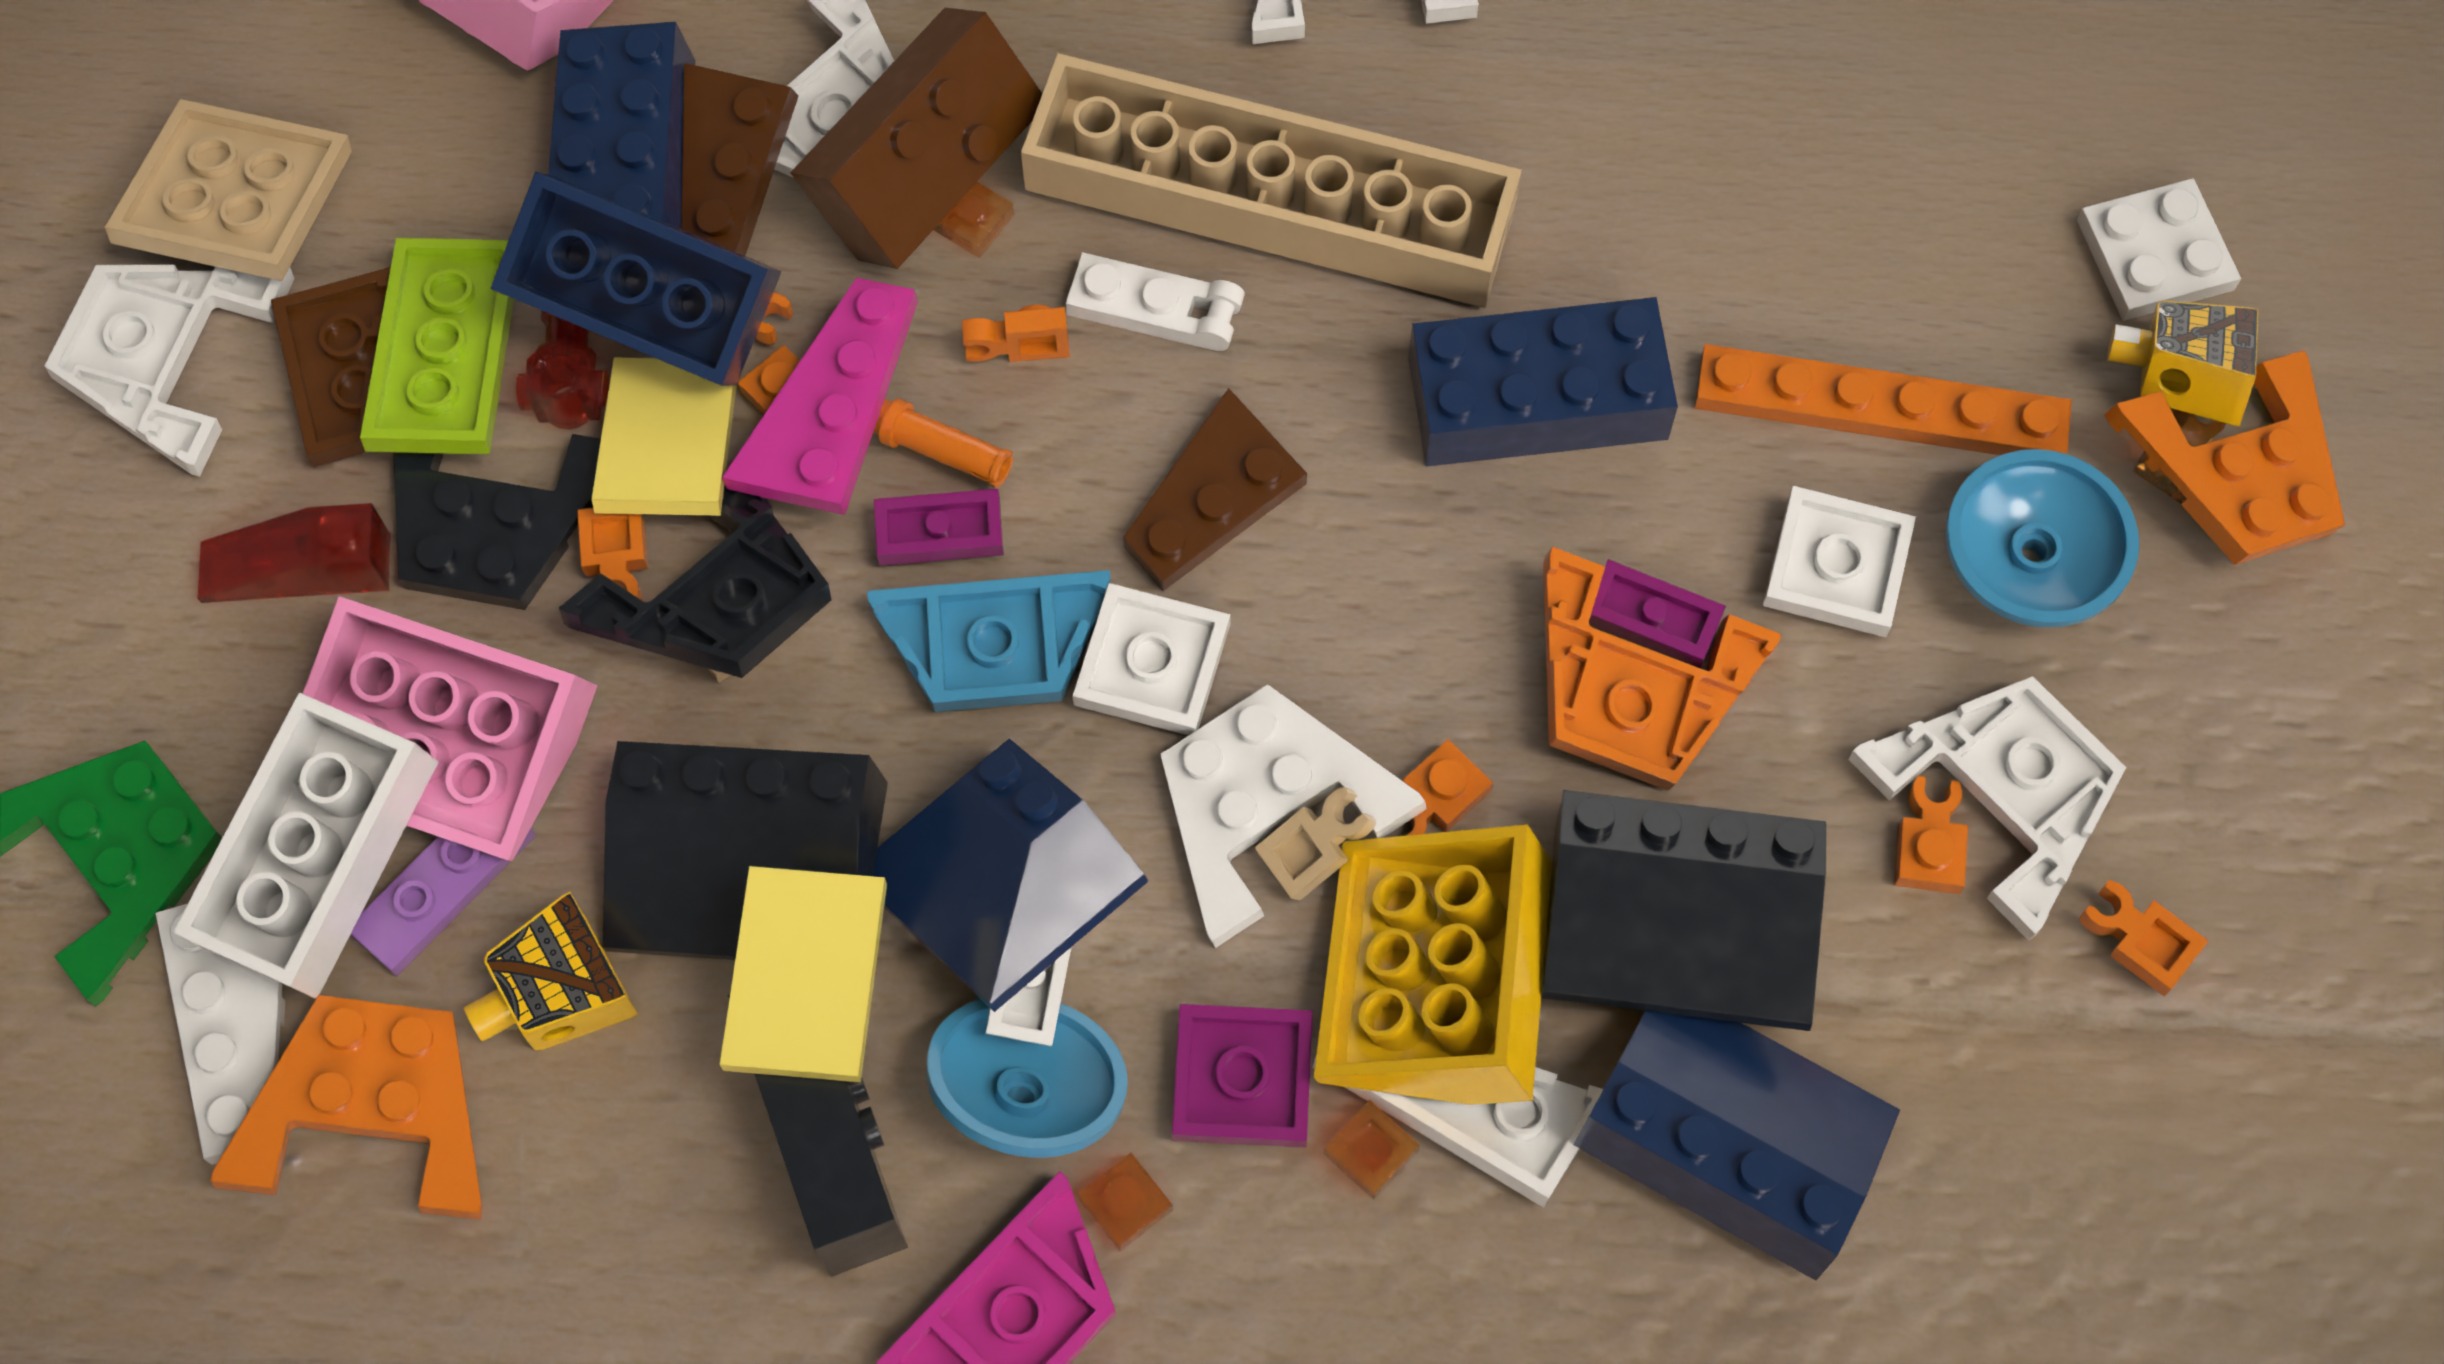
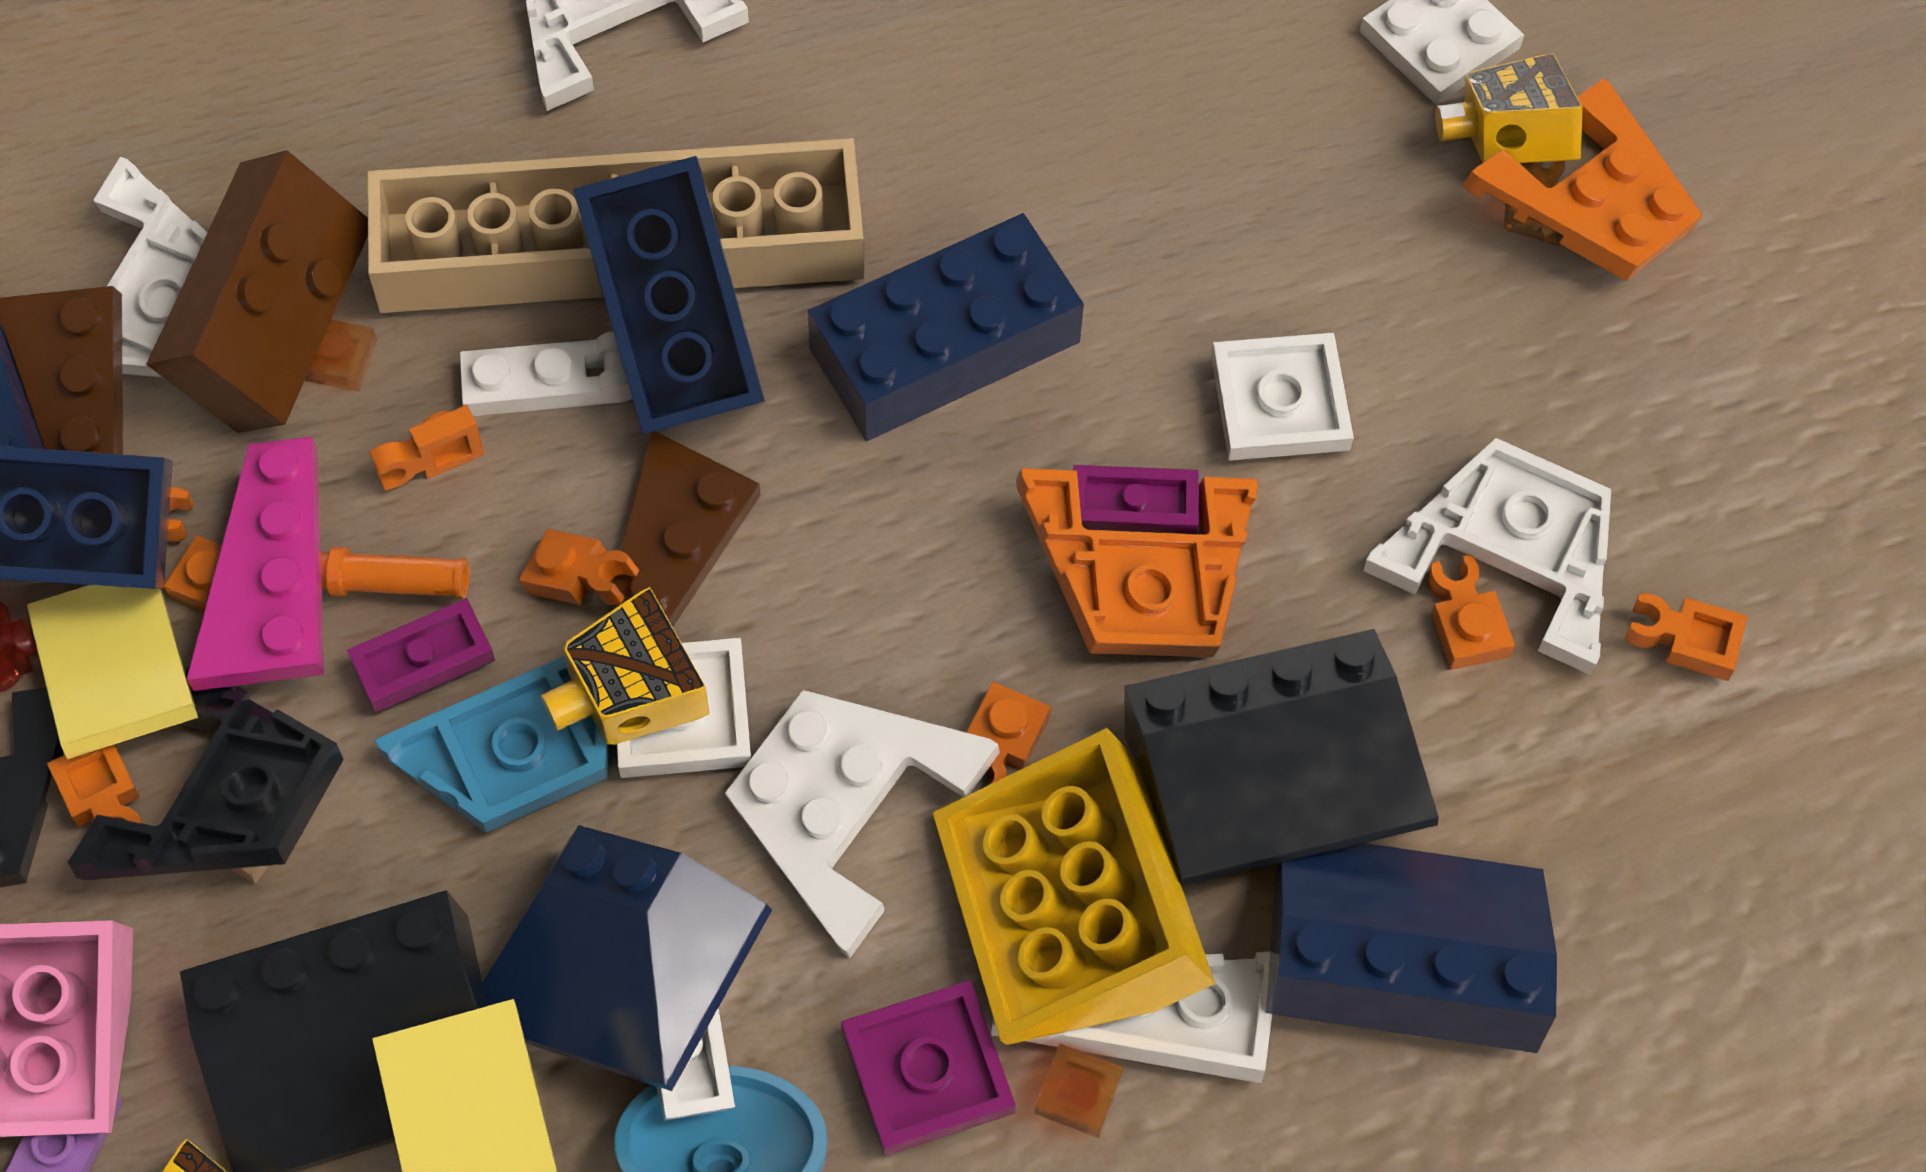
camera: 25 degrees left, 5 degrees down
(1104, 492) = (571, 565): none -> orange plate
(1110, 614) = (628, 675): none -> torso
(1285, 267) = (669, 294): none -> dark blue brick
(1306, 846) = (901, 829): tan plate -> none
(1880, 402) = (1258, 245): orange plate -> none
(2060, 512) = (1457, 287): dark azure dish -> none

